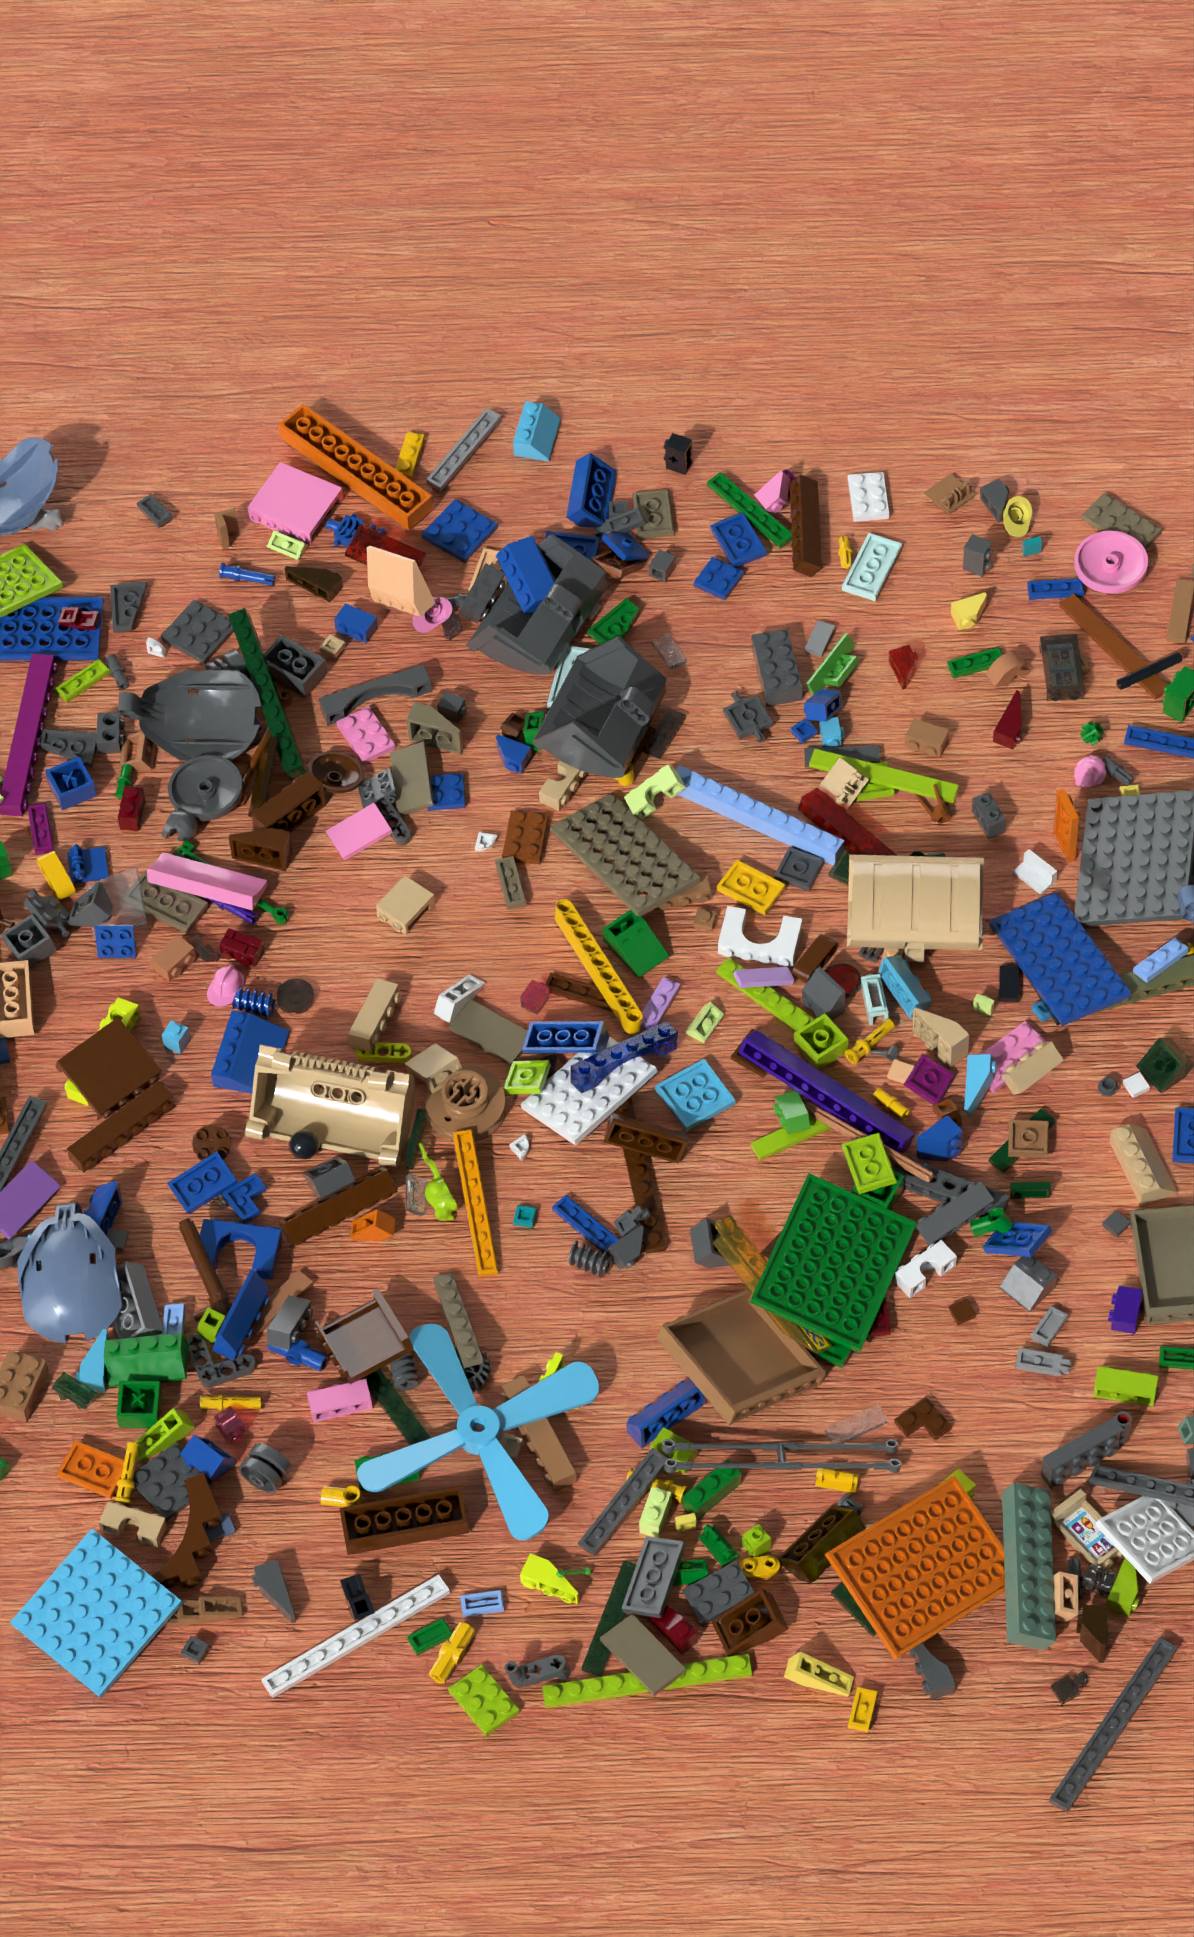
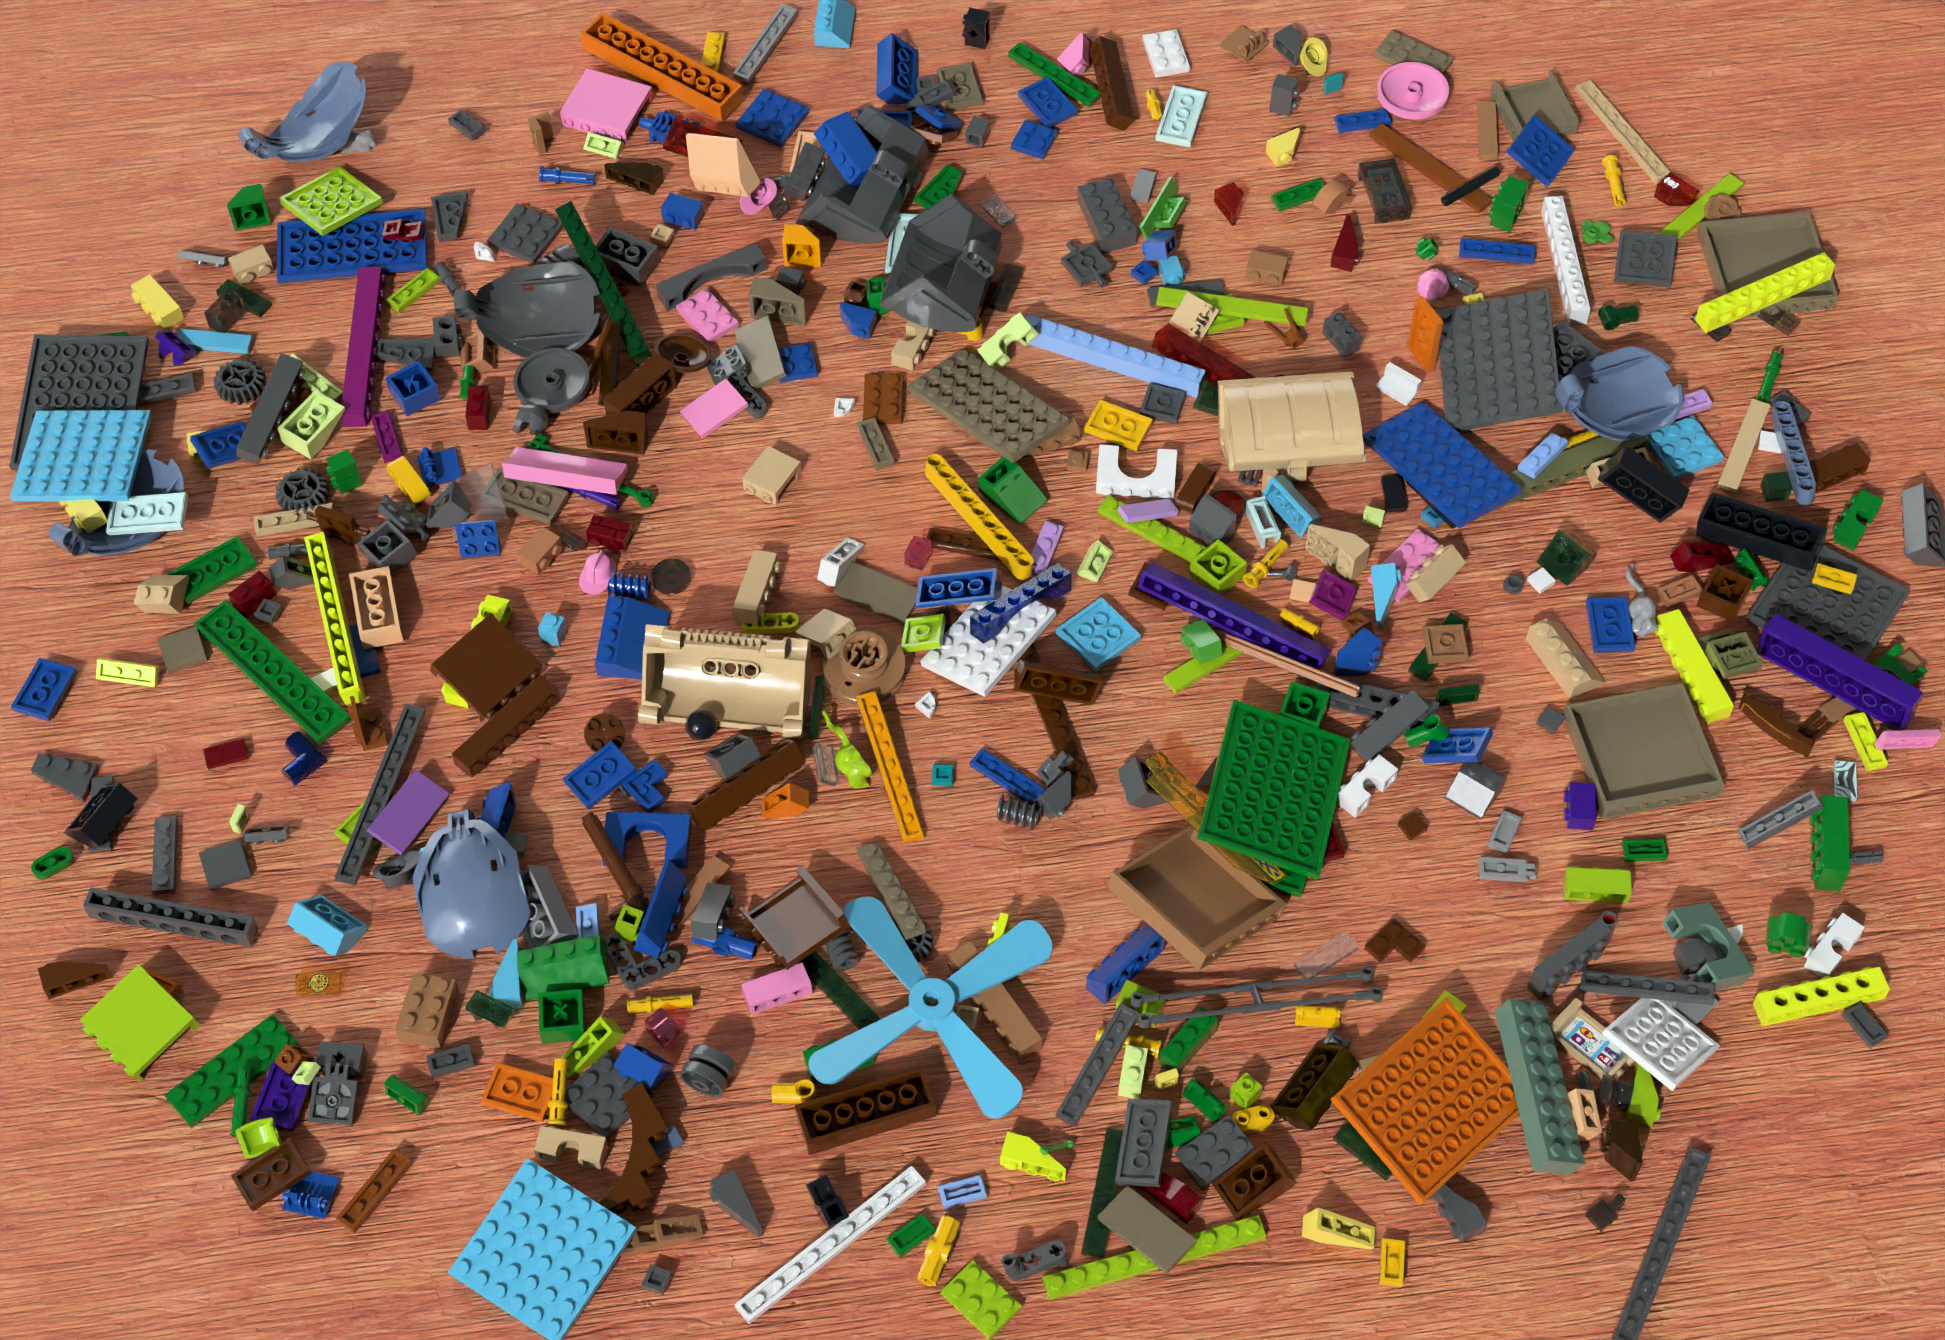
camera: 10 degrees left, 0 degrees up
(33, 1434) = (450, 1061): none -> dark grey plate
(465, 673) = (800, 247): none -> light orange slope
(868, 1163) = (1292, 684): lime tile -> none

